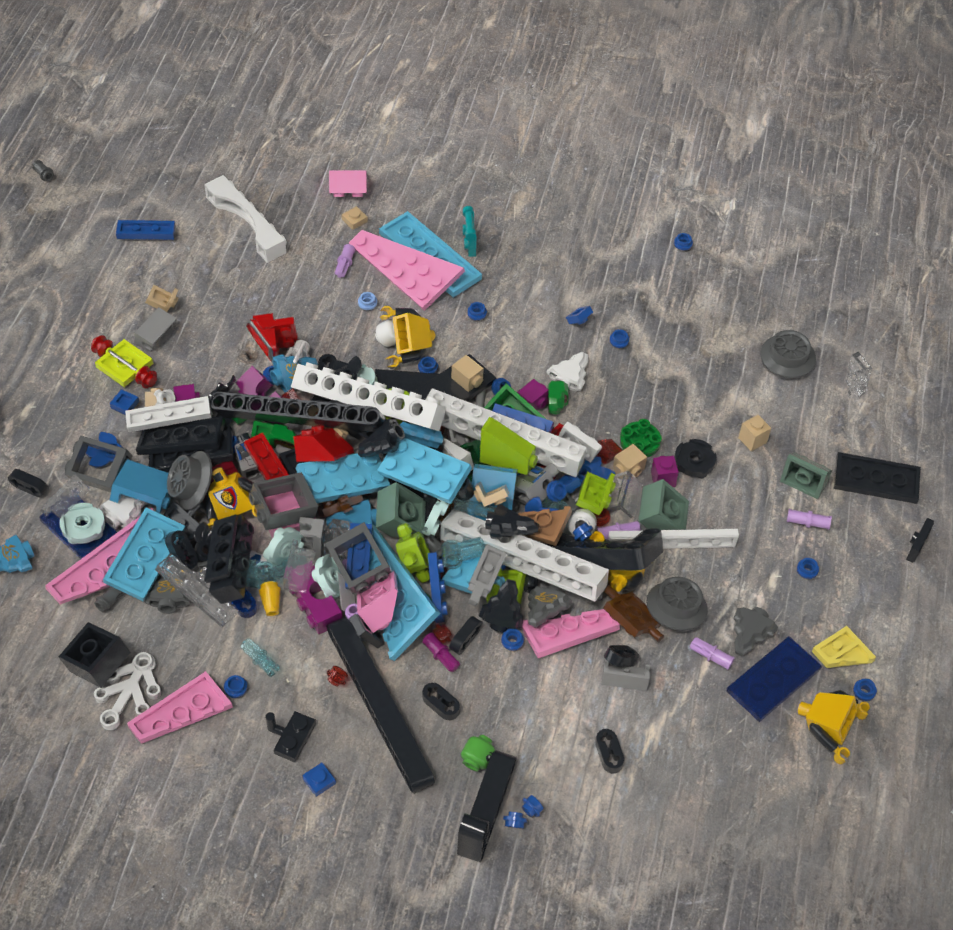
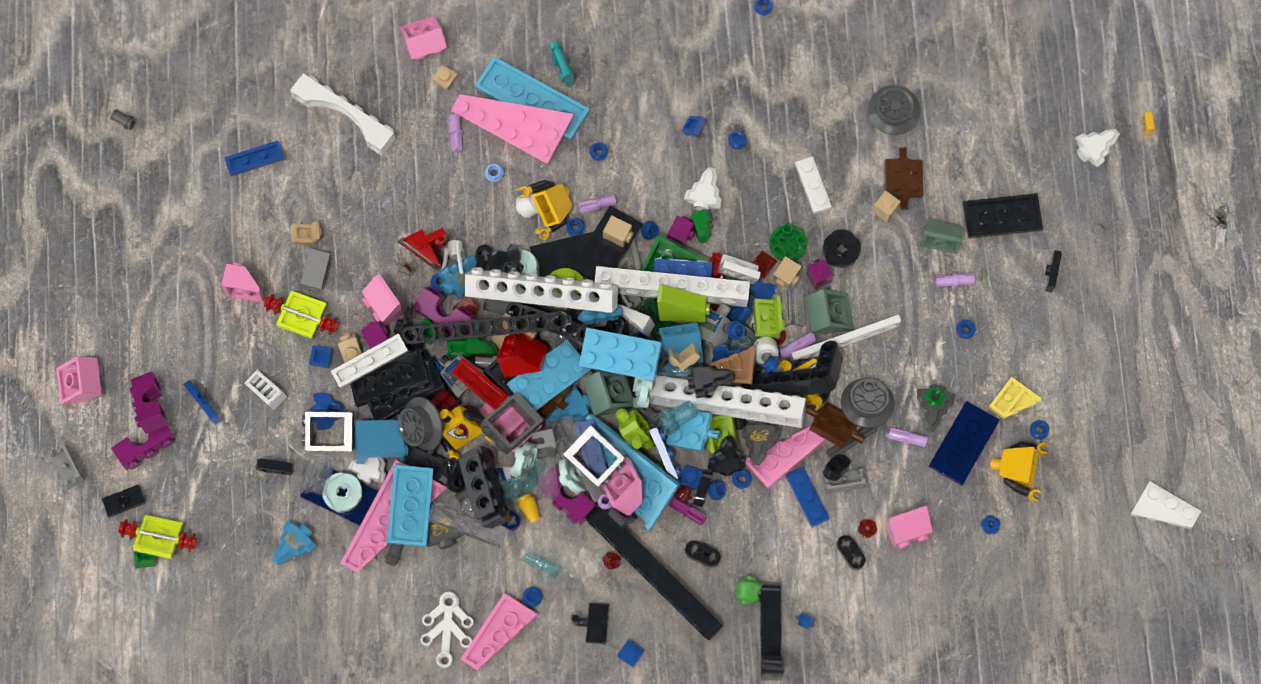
camera: 15 degrees left, 20 degrees up
(56, 418) = (274, 398): none -> white slope
(76, 316) = (240, 284): none -> bright pink slope
(94, 654) = (409, 610): black brick -> none
(168, 394) = (364, 345): white plate -> none
(182, 548) = (441, 488): black beam -> none
(205, 368) = (382, 301): none -> bright pink slope
(383, 440) = (576, 337): black rock -> none
(455, 620) = (690, 477): none -> blue plate
(456, 351) = (597, 203): none -> lavender axle
(480, 641) = (716, 490): none -> blue plate
(485, 573) = (704, 435): light grey hinge -> none
(515, 820) = (796, 637): blue plate -> none
(579, 680) = (807, 497): none -> blue plate
(639, 726) = (872, 528): none -> clear red plate
(647, 639) = (835, 450): none -> dark grey axle
(683, 398) = (813, 185): none -> white plate
(685, 739) = (909, 527): none -> bright pink slope
(757, 612) = (935, 391): none -> green plate
(780, 776) = (985, 525): none -> blue plate
(781, 415) = (904, 178): none -> reddish brown plate

